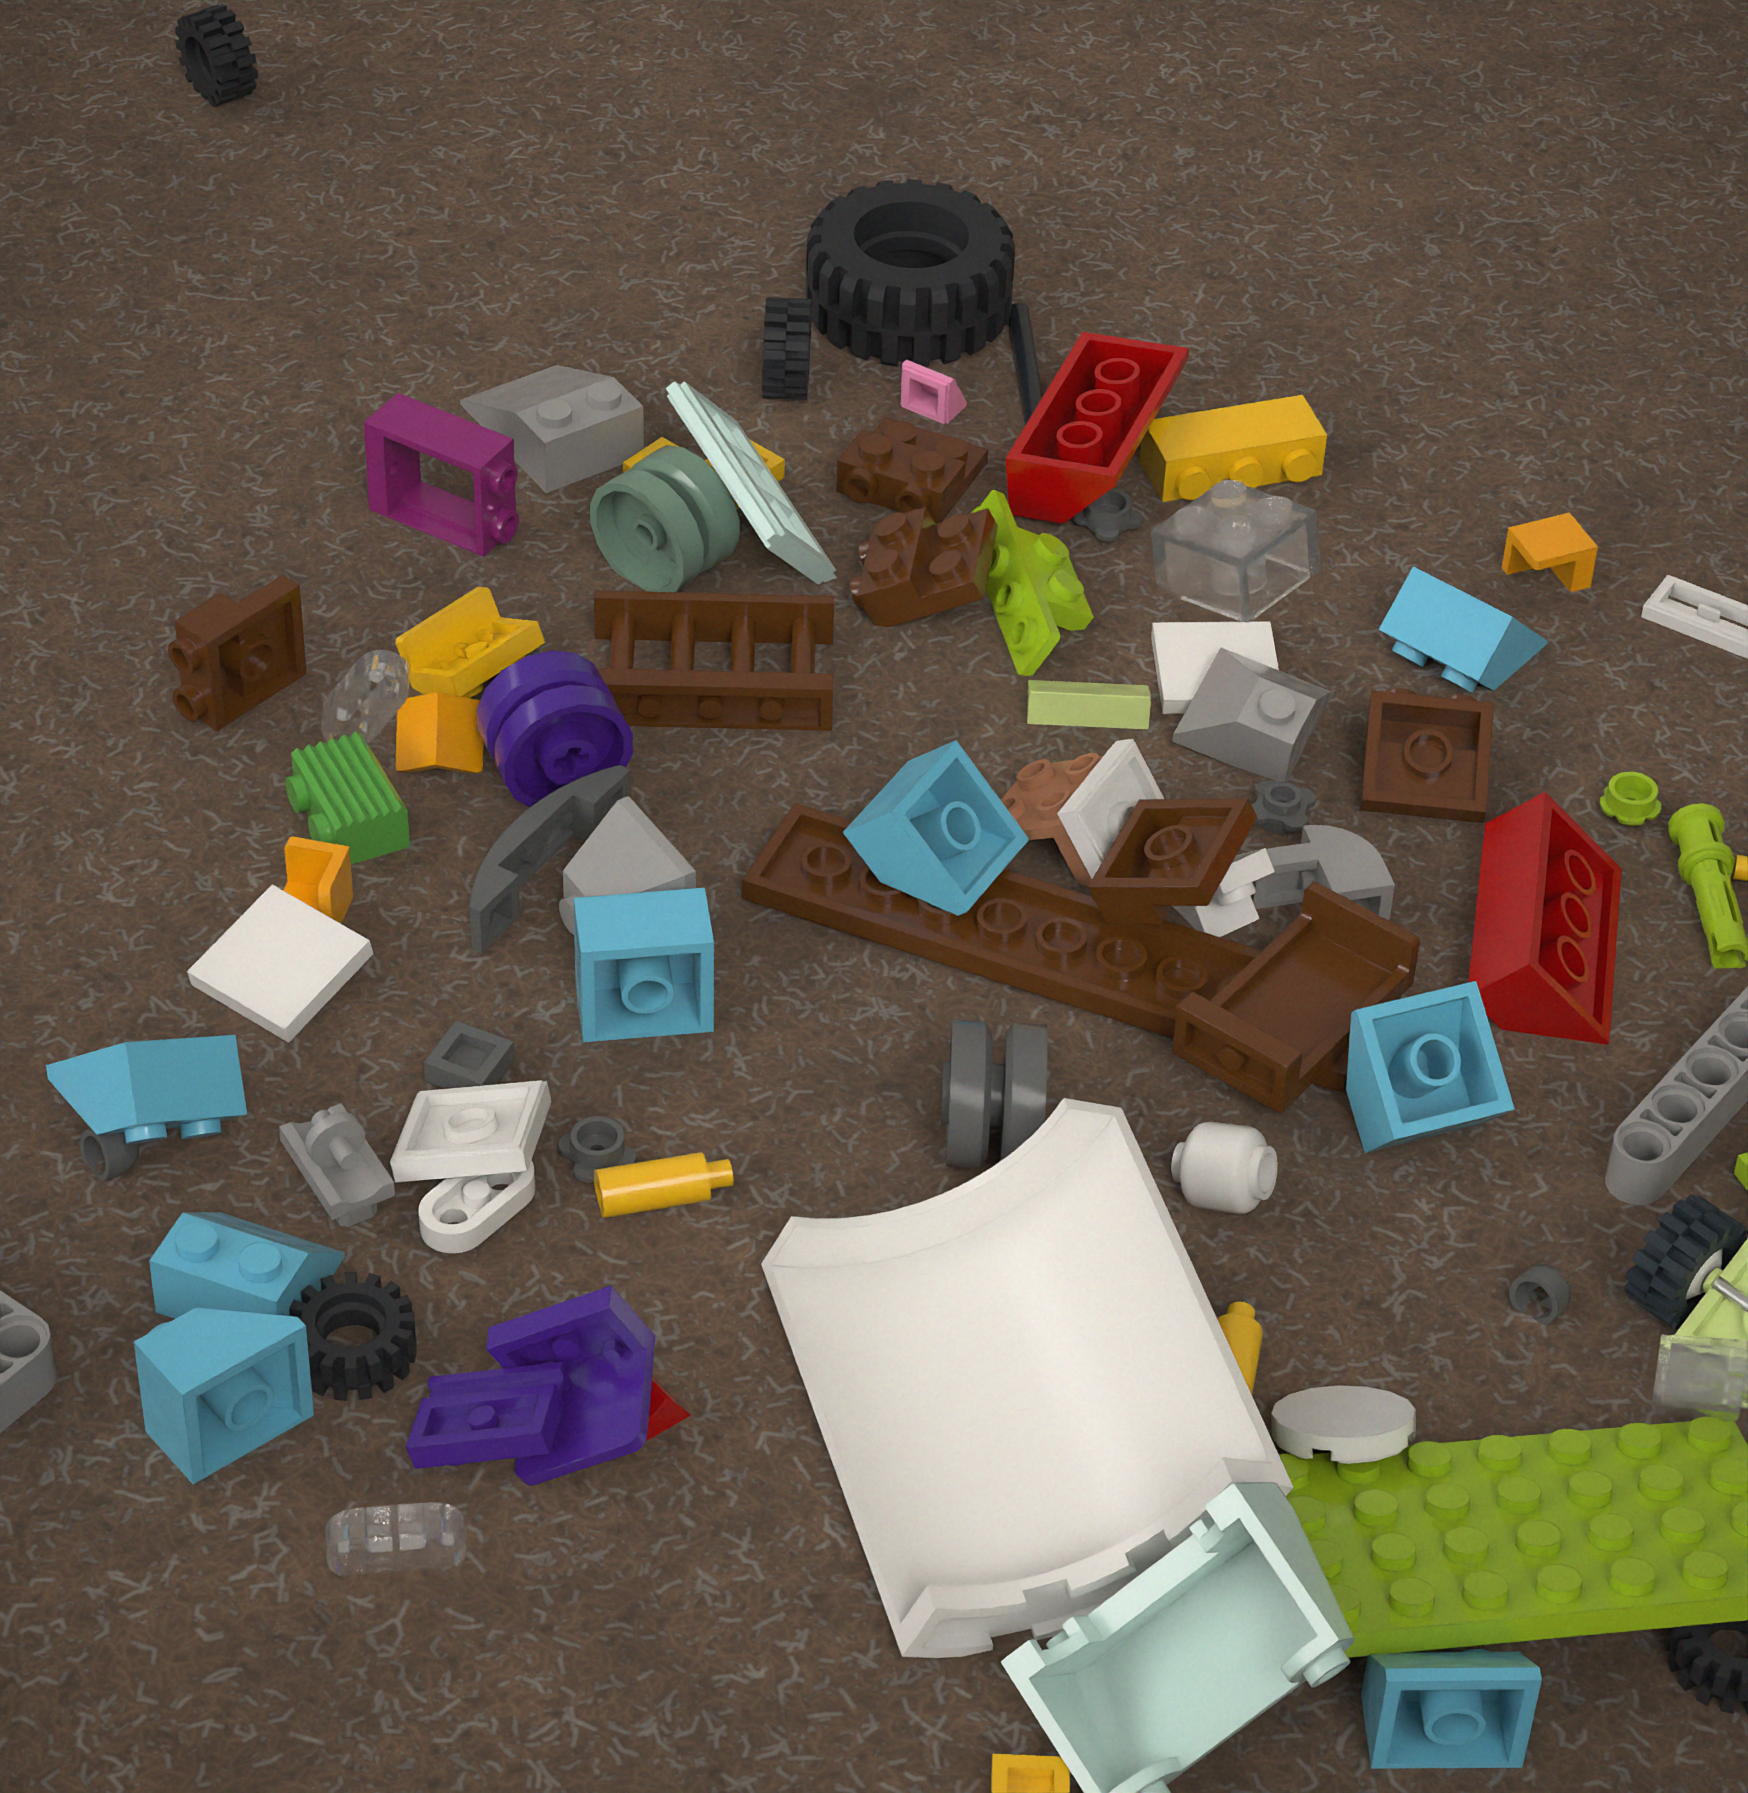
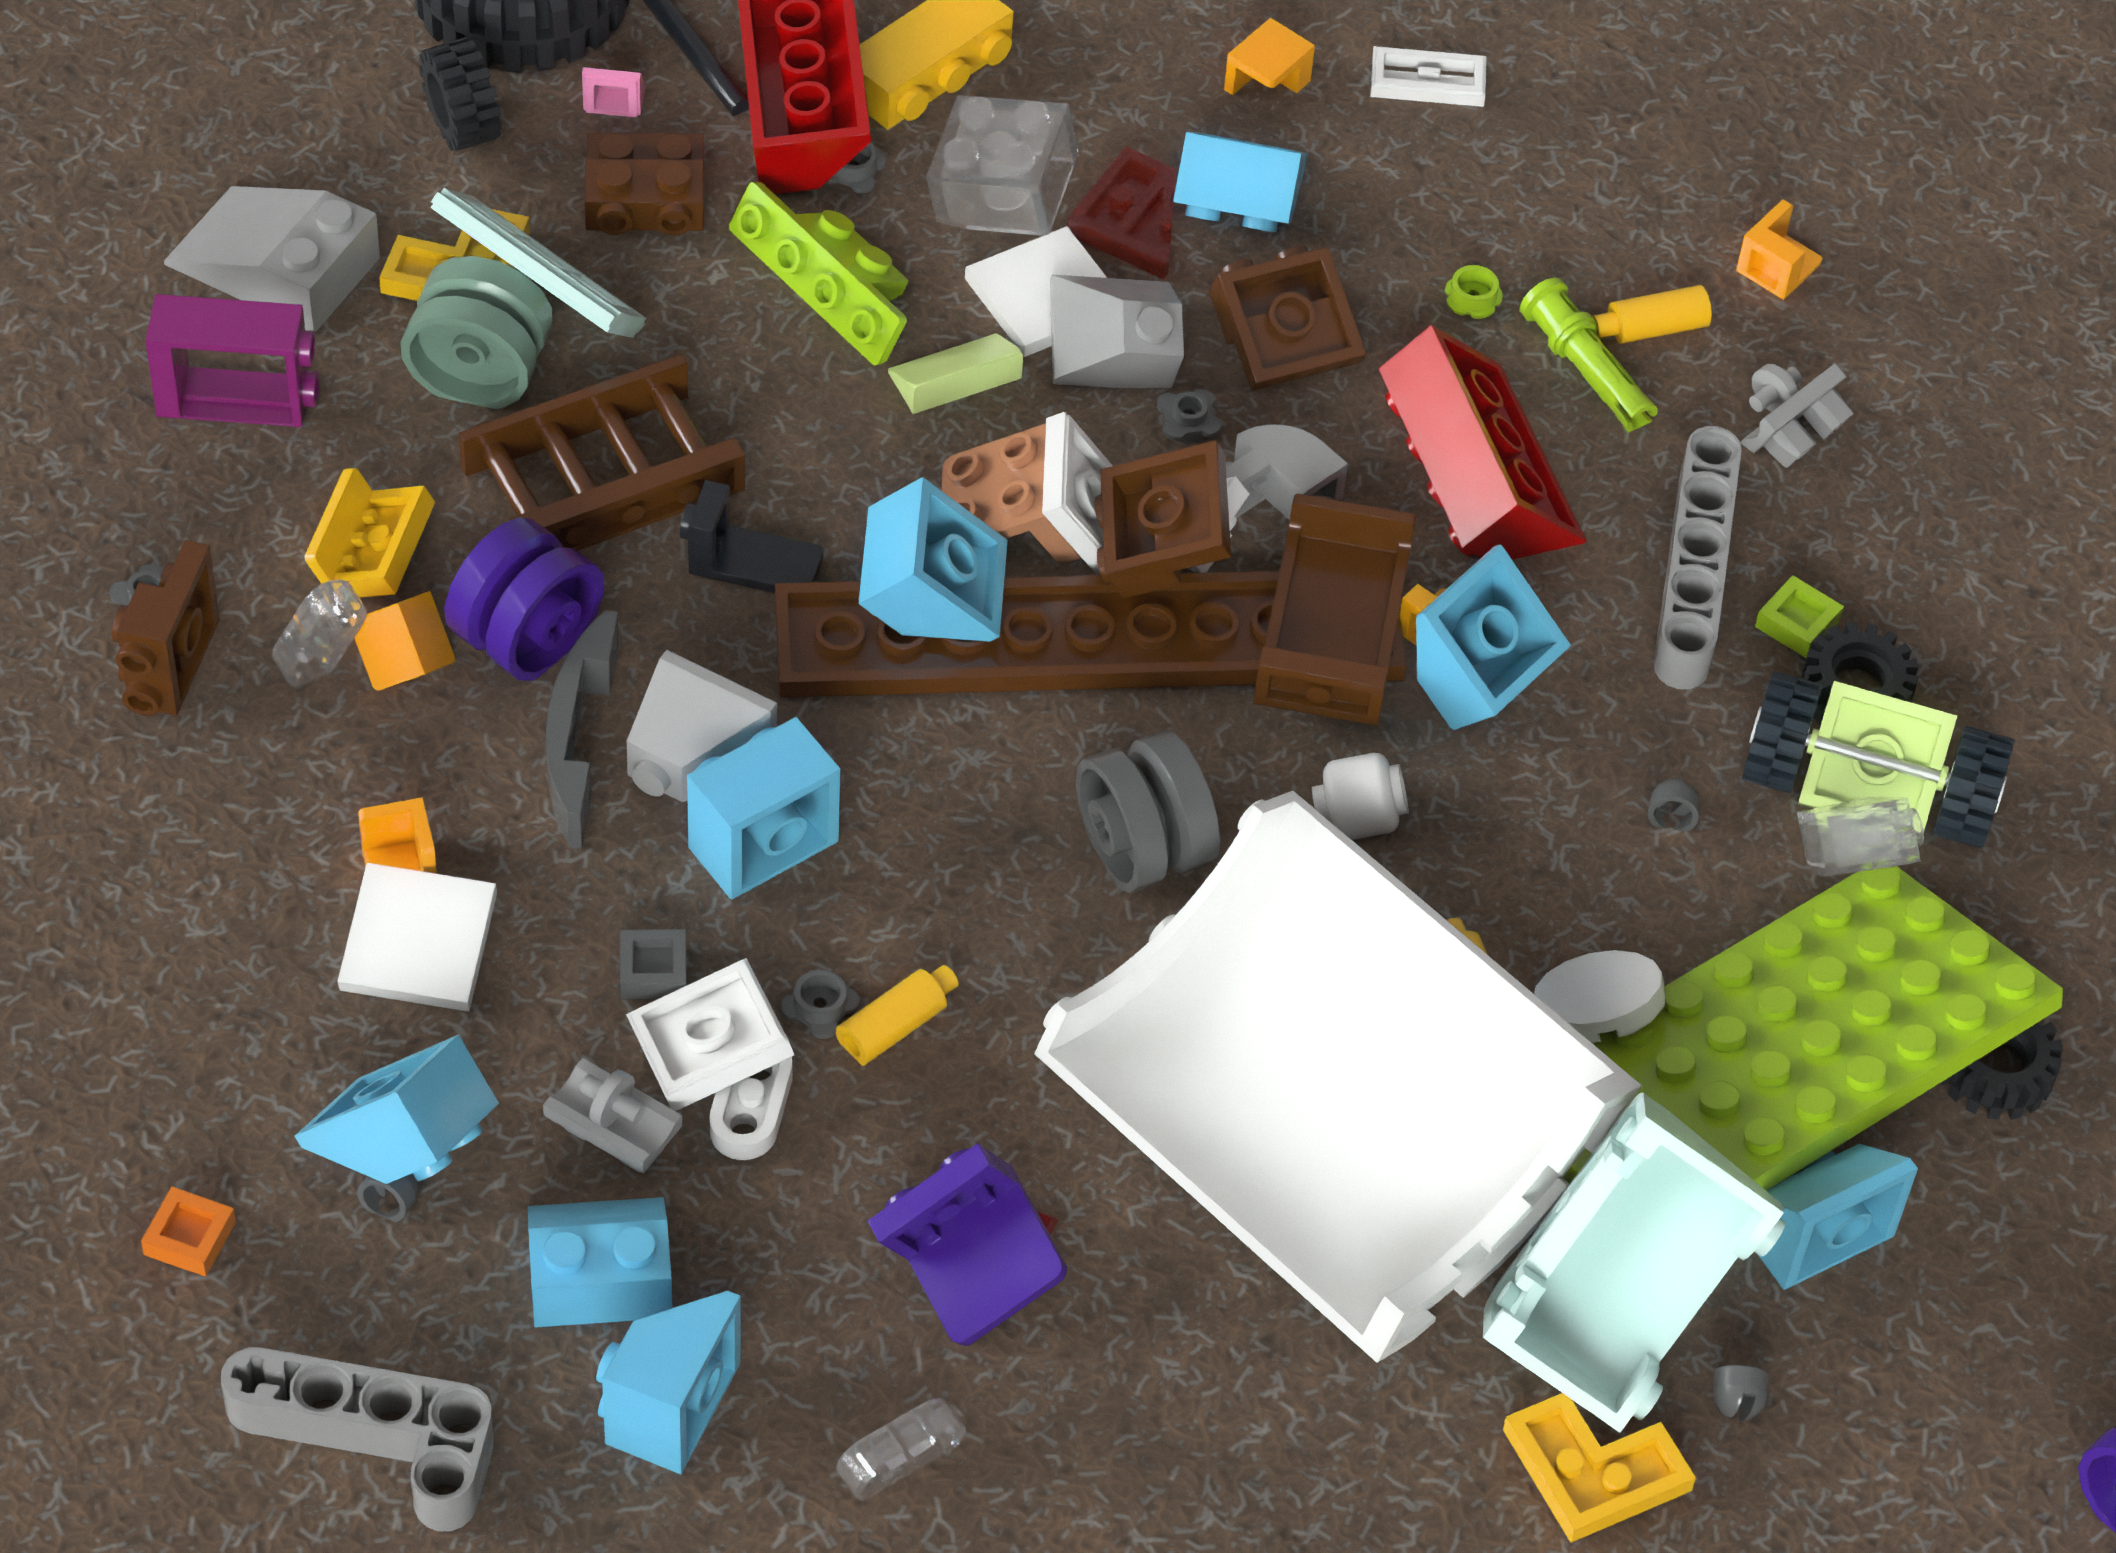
camera: 30 degrees left, 10 degrees up
(348, 798) = (364, 742): bright green brick -> none
(360, 1305) = (742, 1242): black tyre -> none
(488, 1415) = (905, 1299): dark purple plate -> none
(771, 766) = (739, 553): none -> black bracket
(923, 566) = (734, 286): reddish brown plate -> none
(1335, 630) = (1130, 212): none -> clear red wing

